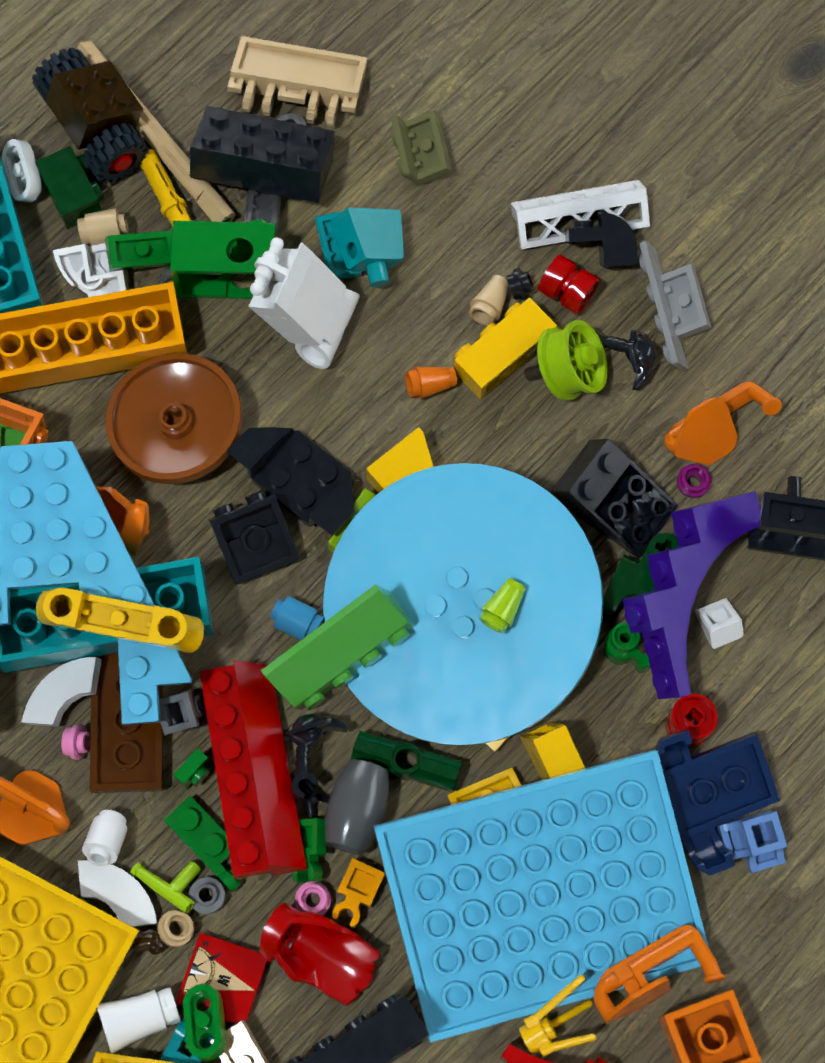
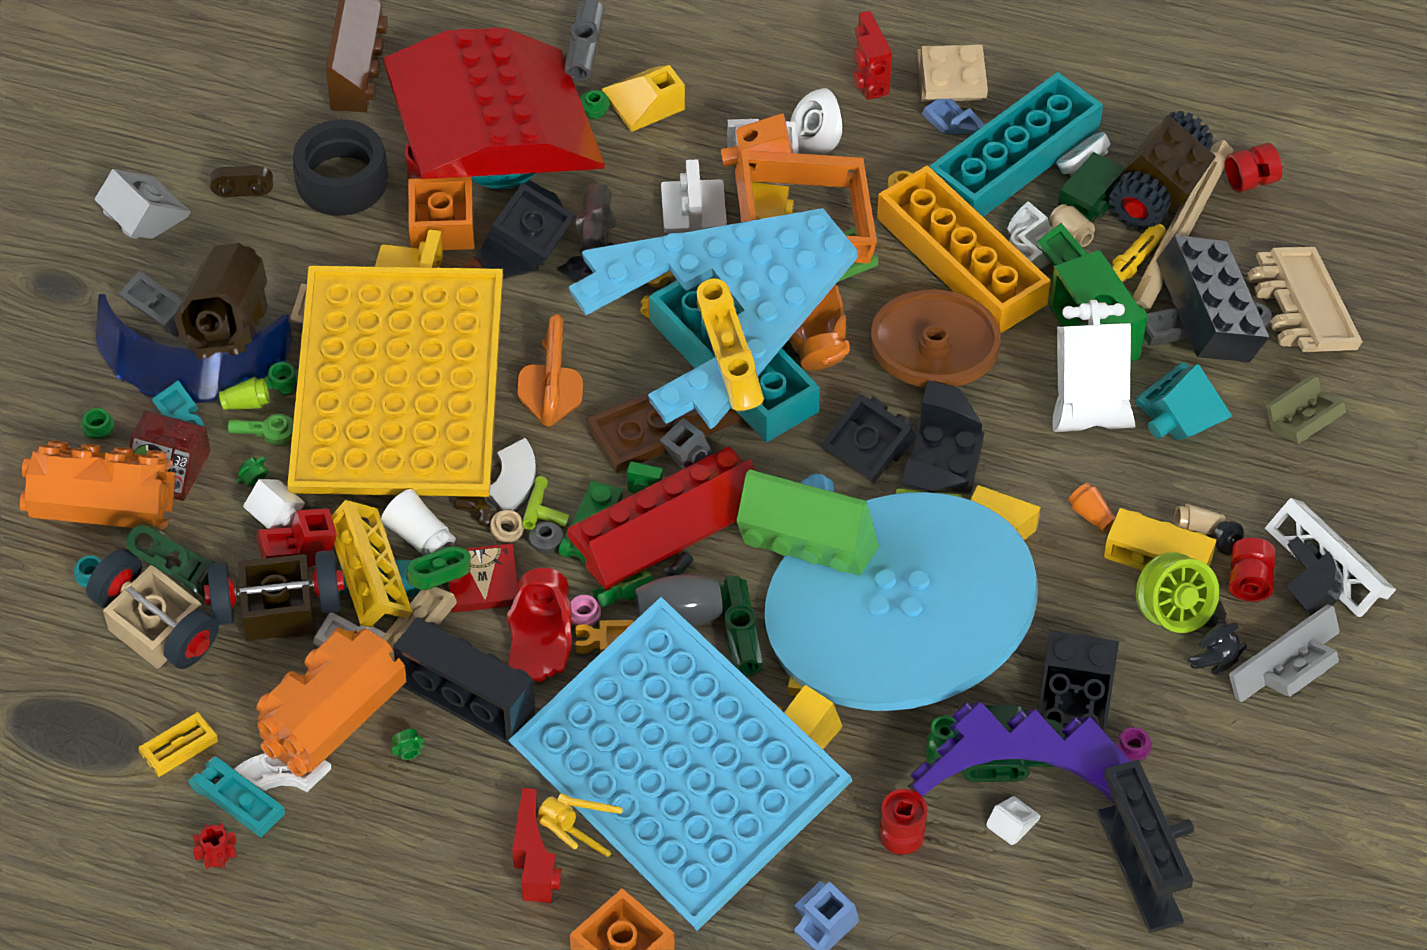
camera: 65 degrees right, 20 degrees down
(60, 690) = (654, 364): white tile -> none
(75, 741) = (621, 392): bright pink plate -> none
(105, 838) = (553, 444): white brick -> none
(126, 36) = (1258, 166): none -> red wheel
(305, 733) = (721, 540): black piece -> none
(502, 607) = (911, 615): lime cone -> none
(631, 973) = (635, 868): orange piece -> none
(708, 428) = (1185, 727): orange piece -> none
(712, 791) = (850, 857): dark blue piece -> none

